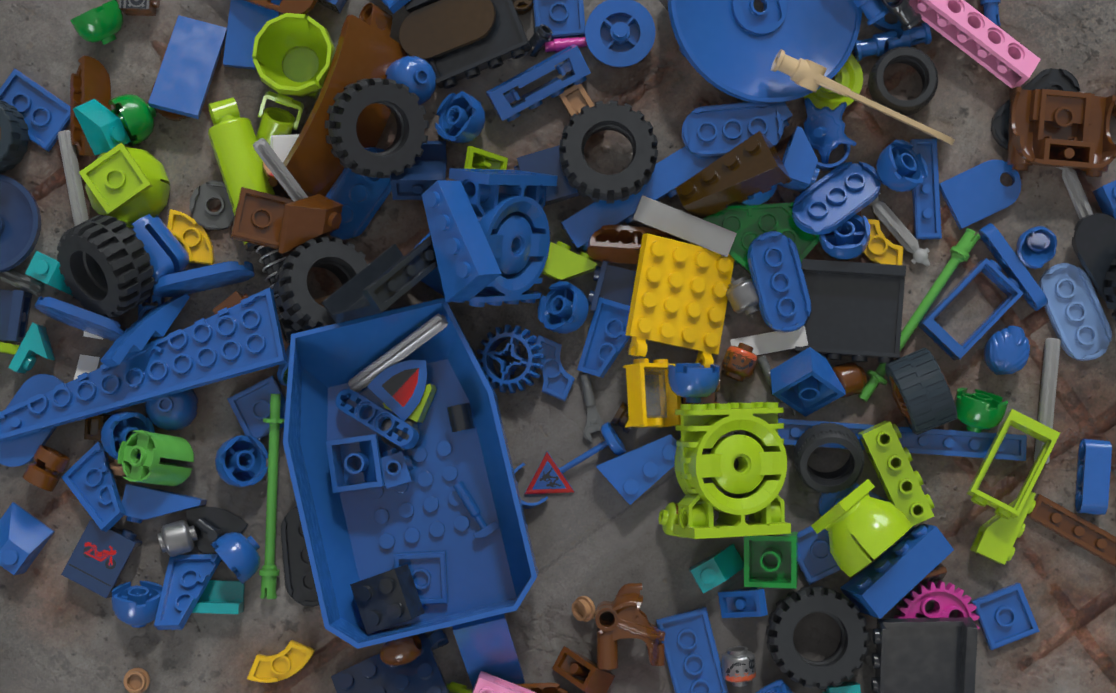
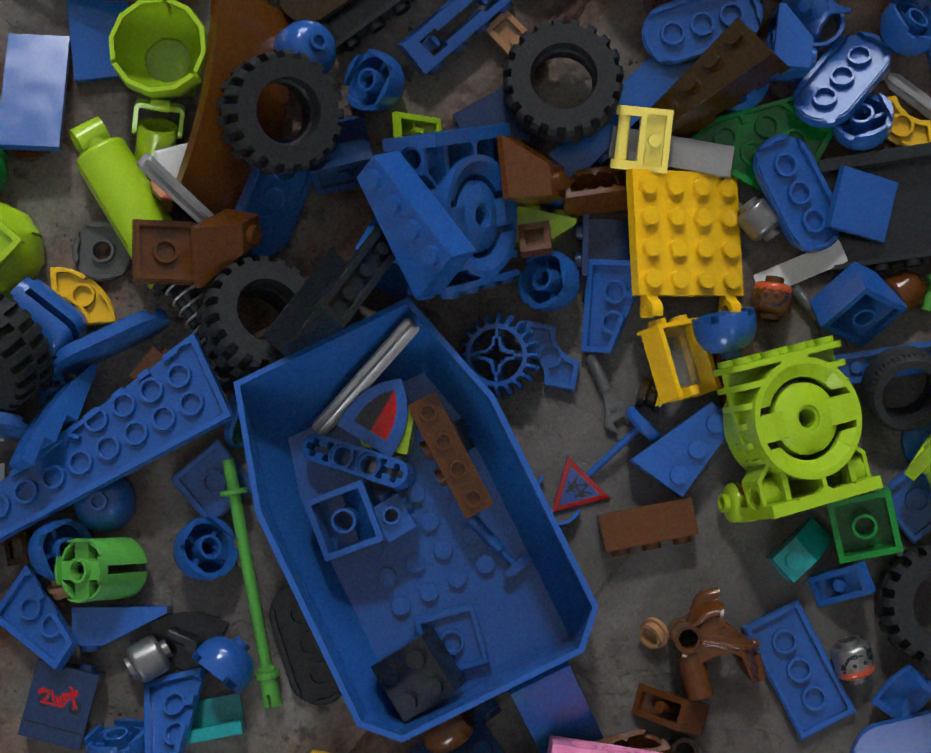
camera: 20 degrees left, 0 degrees up
(452, 434) = (450, 455): none -> reddish brown bracket
(558, 272) = (535, 239): none -> reddish brown plate
(565, 218) = (529, 173): none -> reddish brown slope
(598, 522) = (647, 526): none -> reddish brown brick
(669, 215) = (652, 141): none -> light yellow plate
(828, 302) = (861, 204): none -> blue tile

